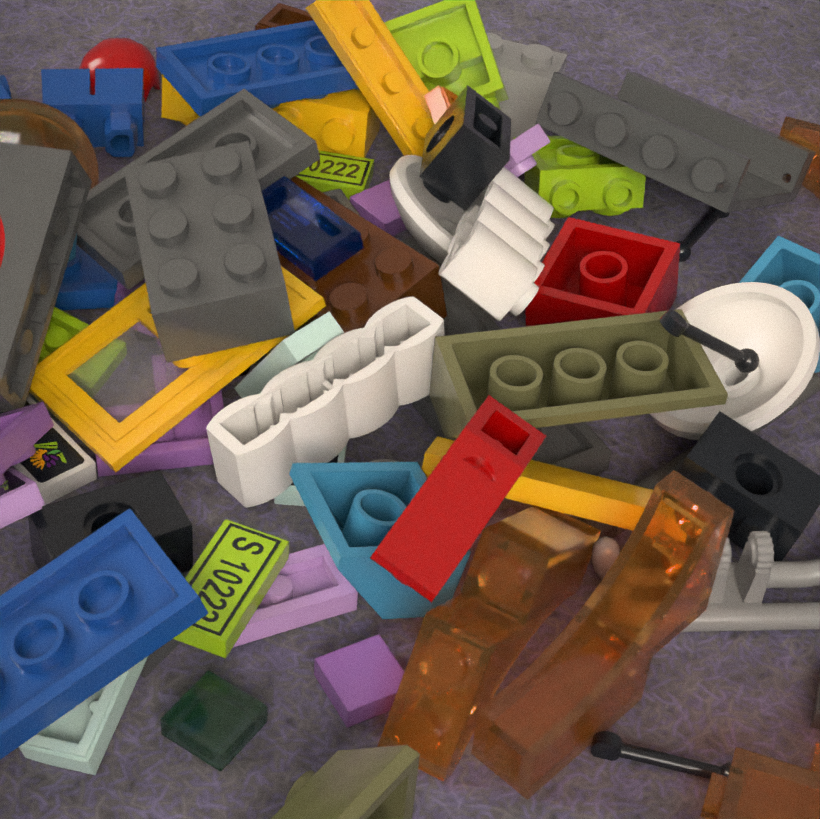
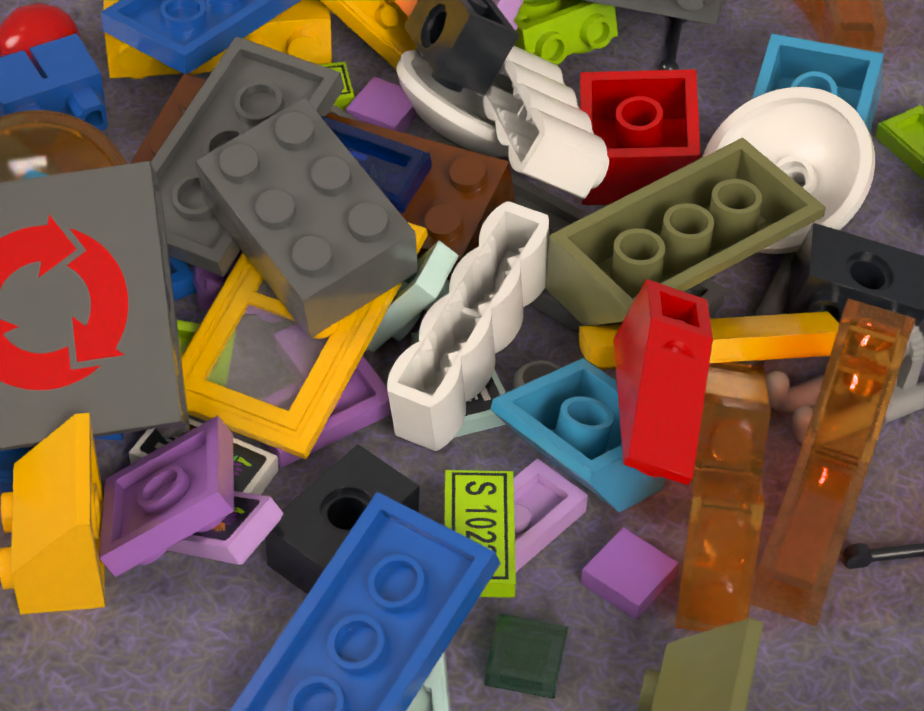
camera: 20 degrees left, 5 degrees up
(745, 360) = (810, 166): black hinge -> none

